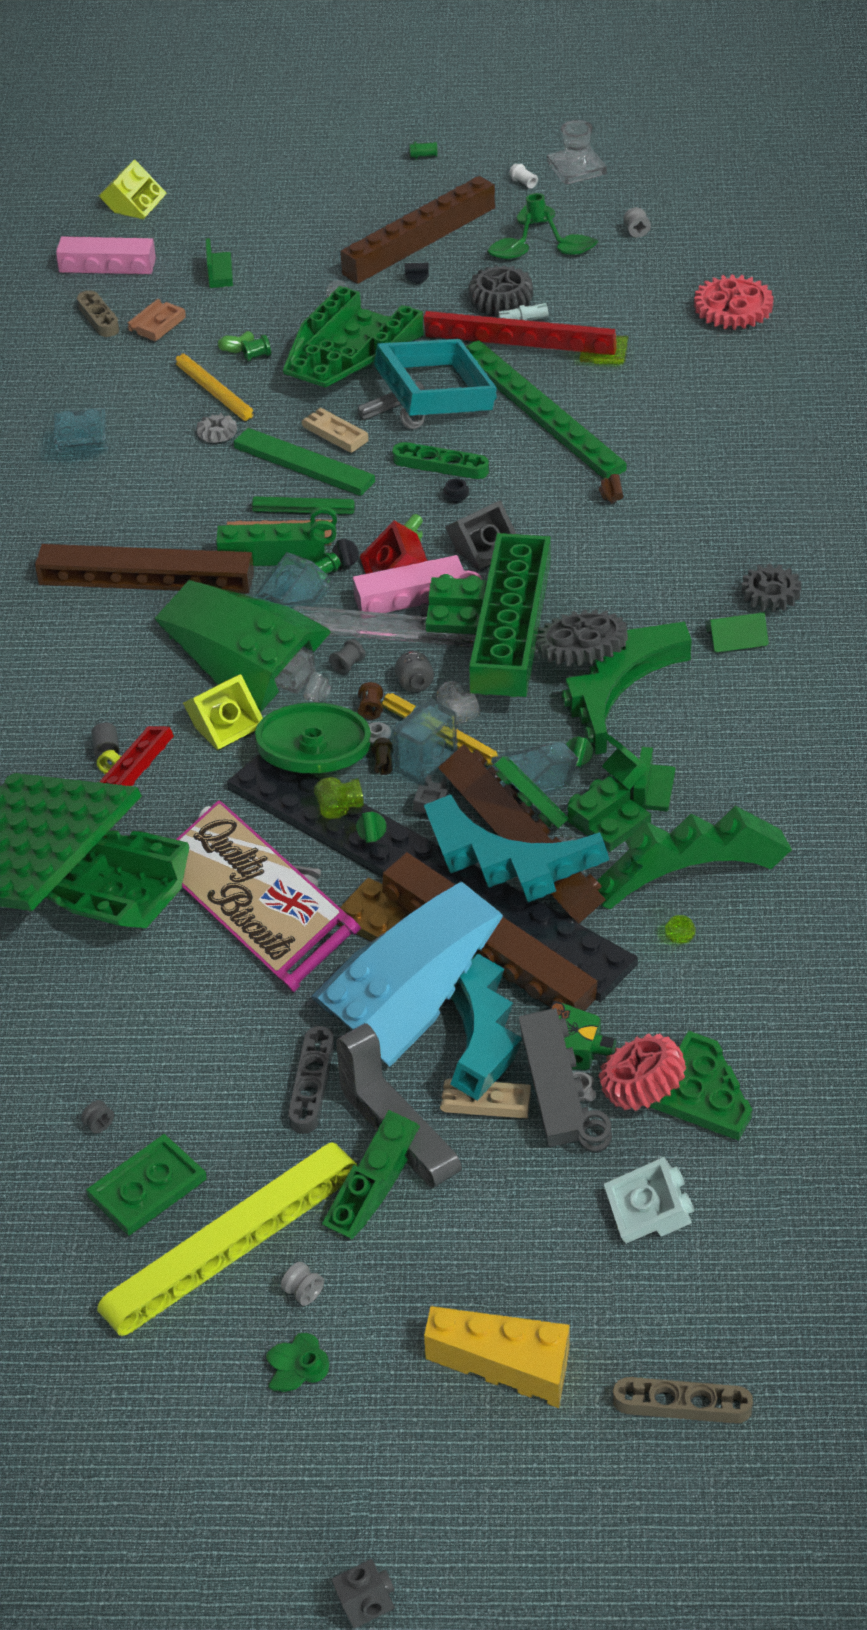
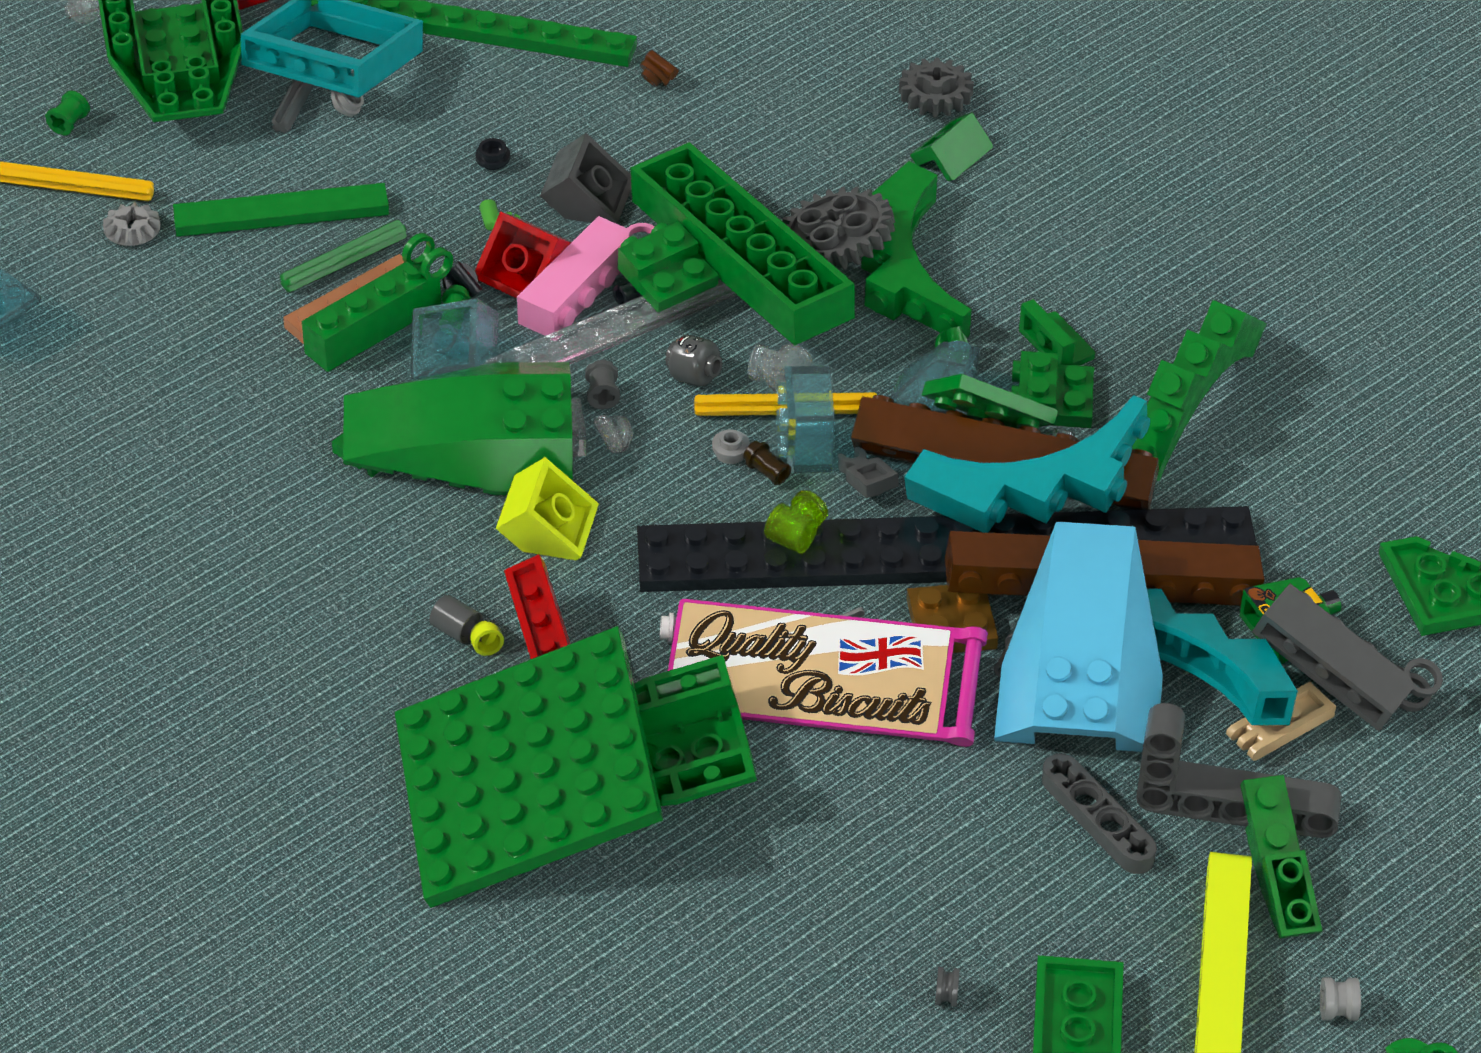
camera: 45 degrees left, 0 degrees up
(142, 567) = (253, 416): reddish brown brick -> none
(233, 343) = (30, 121): bright green arm -> none
(313, 737) = (685, 483): green dish -> none
(335, 430) = (276, 157): tan hinge -> none
(371, 700) = (685, 415): reddish brown bush -> none
(371, 826) = (865, 533): green plate -> none
(412, 455) = (387, 145): green beam -> none
(623, 764) = (1023, 328): green panel -> none
(642, 1072) = (1395, 595): coral gear -> none
(680, 929) = (1252, 458): clear neon green plate -> none

